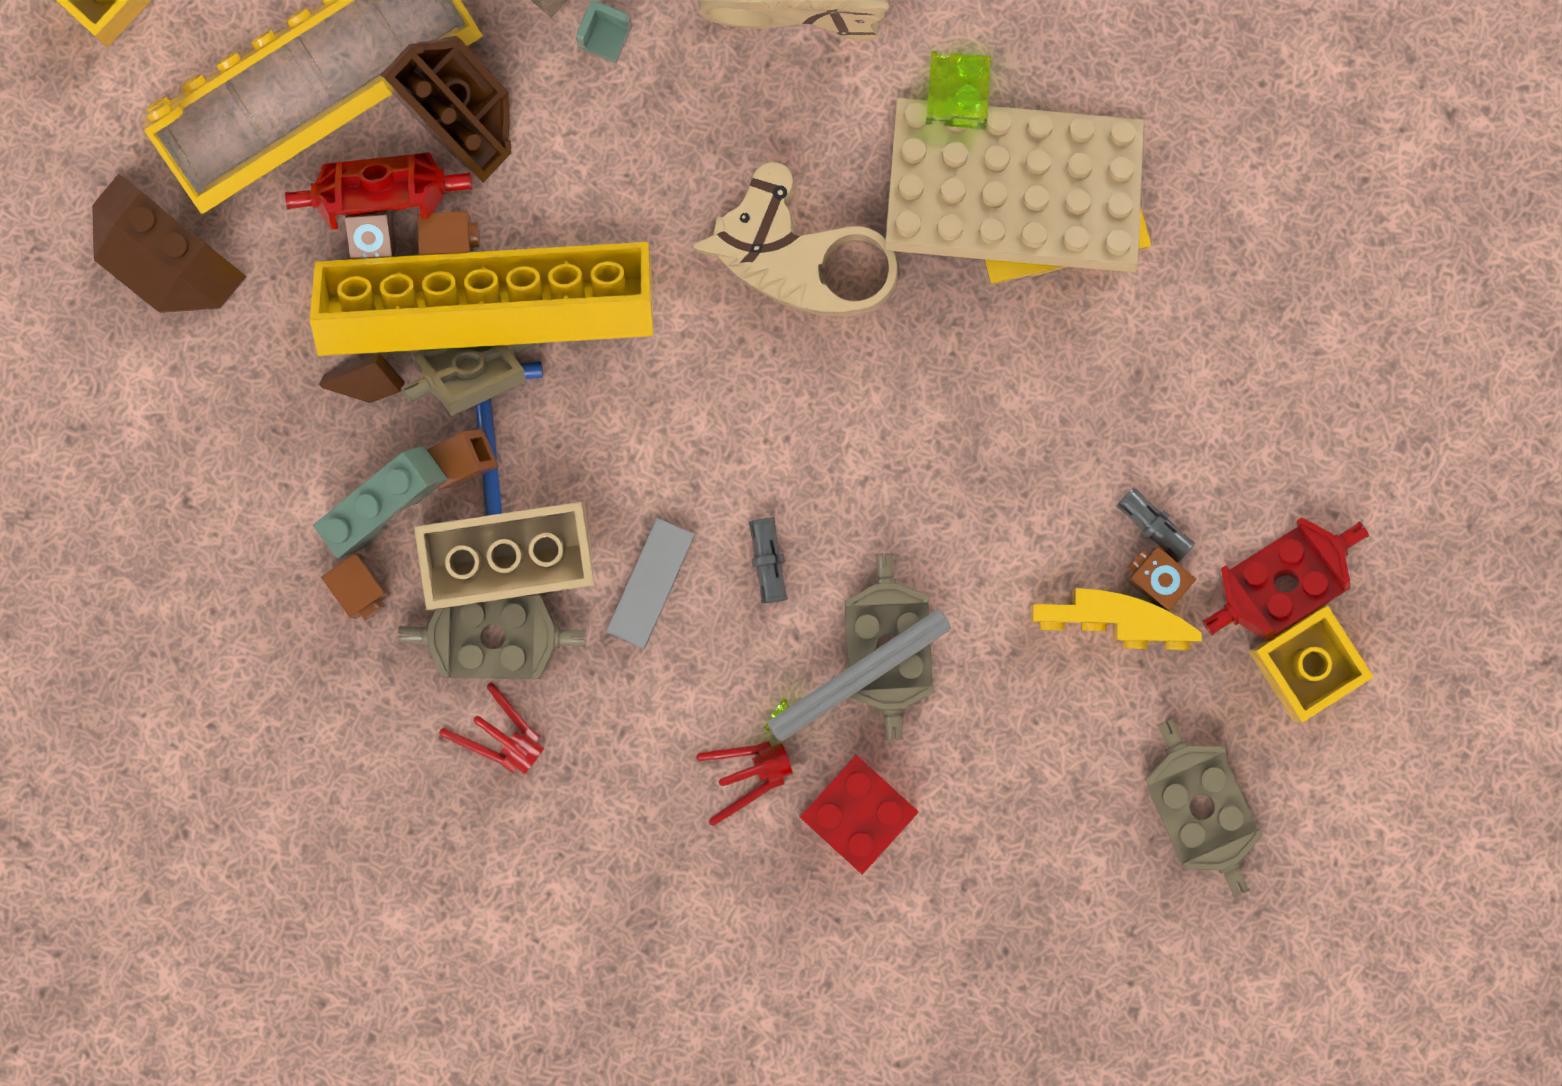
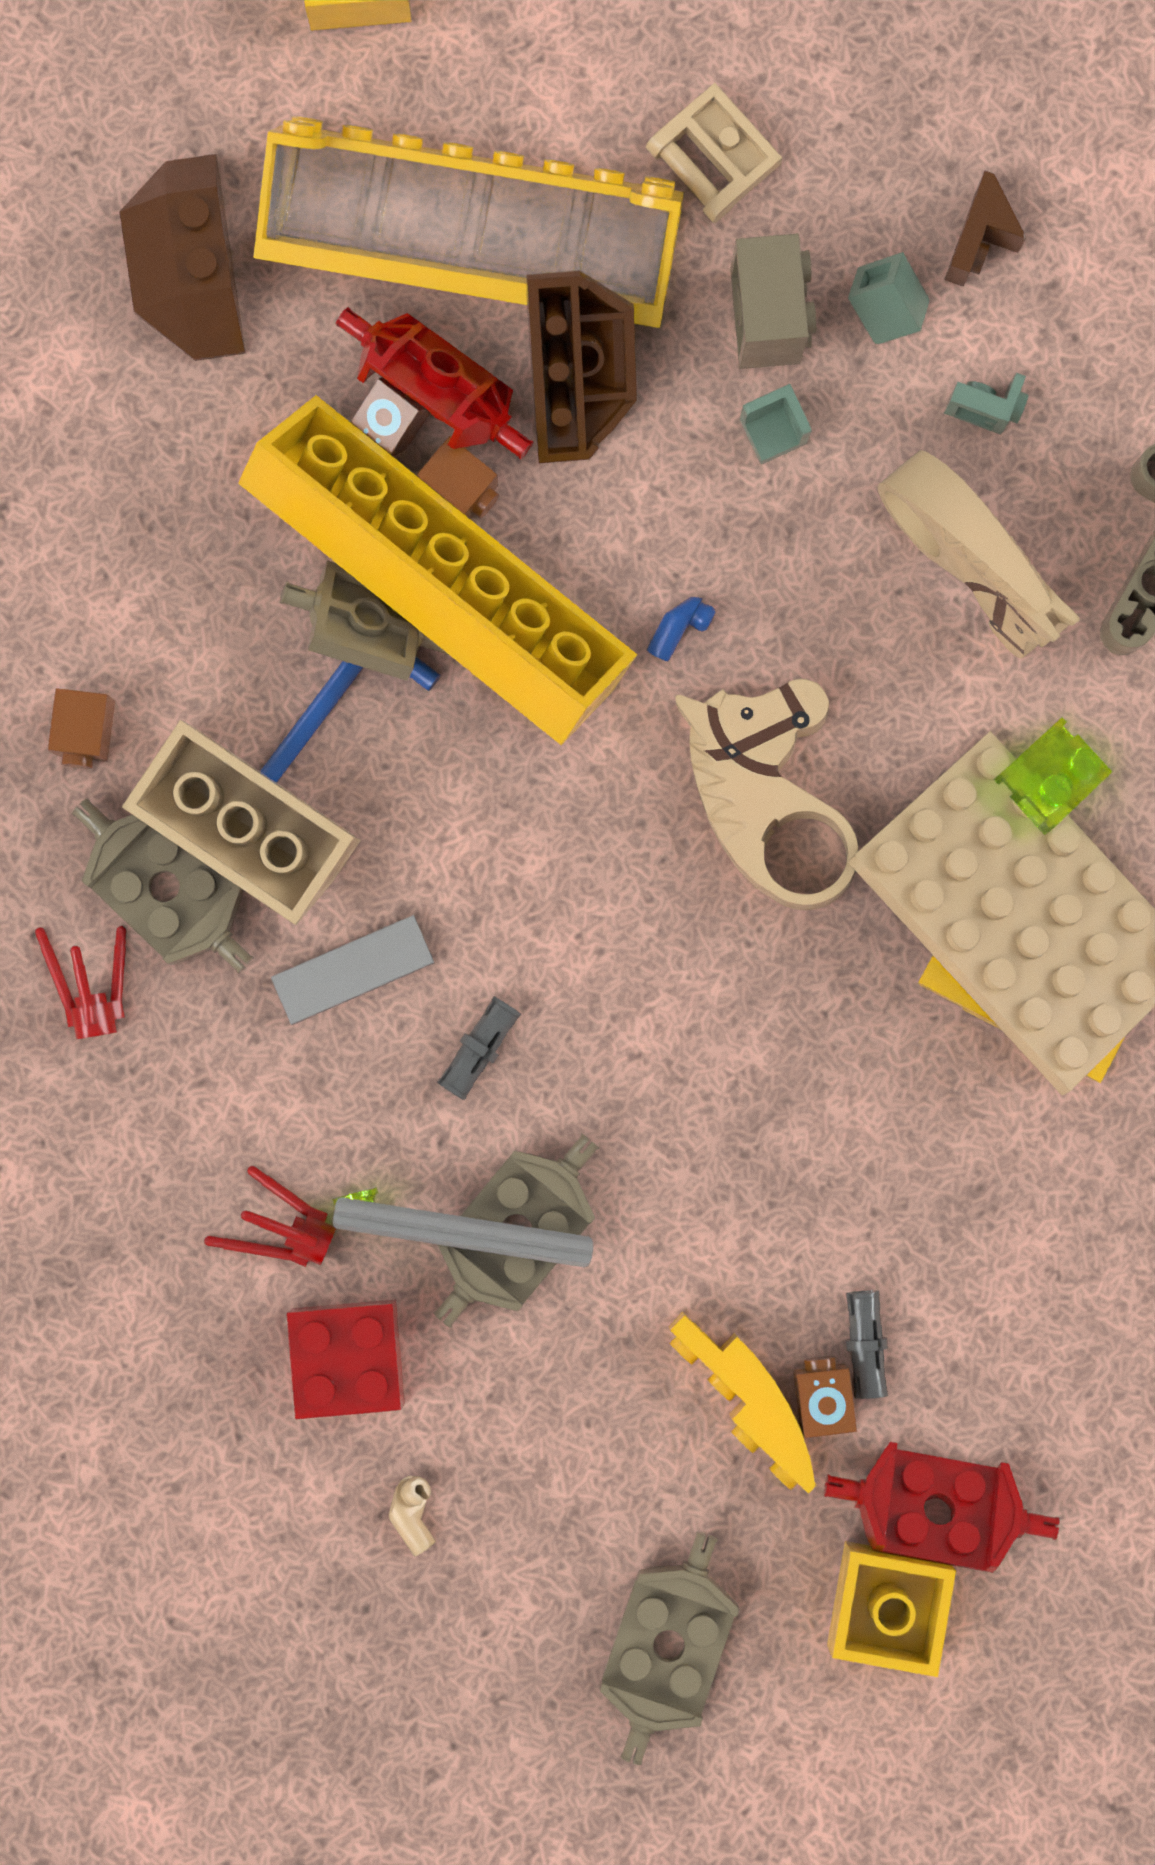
camera: 40 degrees right, 0 degrees up
(364, 380) = (264, 545): reddish brown tile -> none
(383, 496) = (172, 666): sand green arch -> none
(464, 457) = (282, 696): dark orange brick -> none
(652, 203) = (675, 623): none -> blue arm
(977, 871) = (407, 1511): none -> tan arm

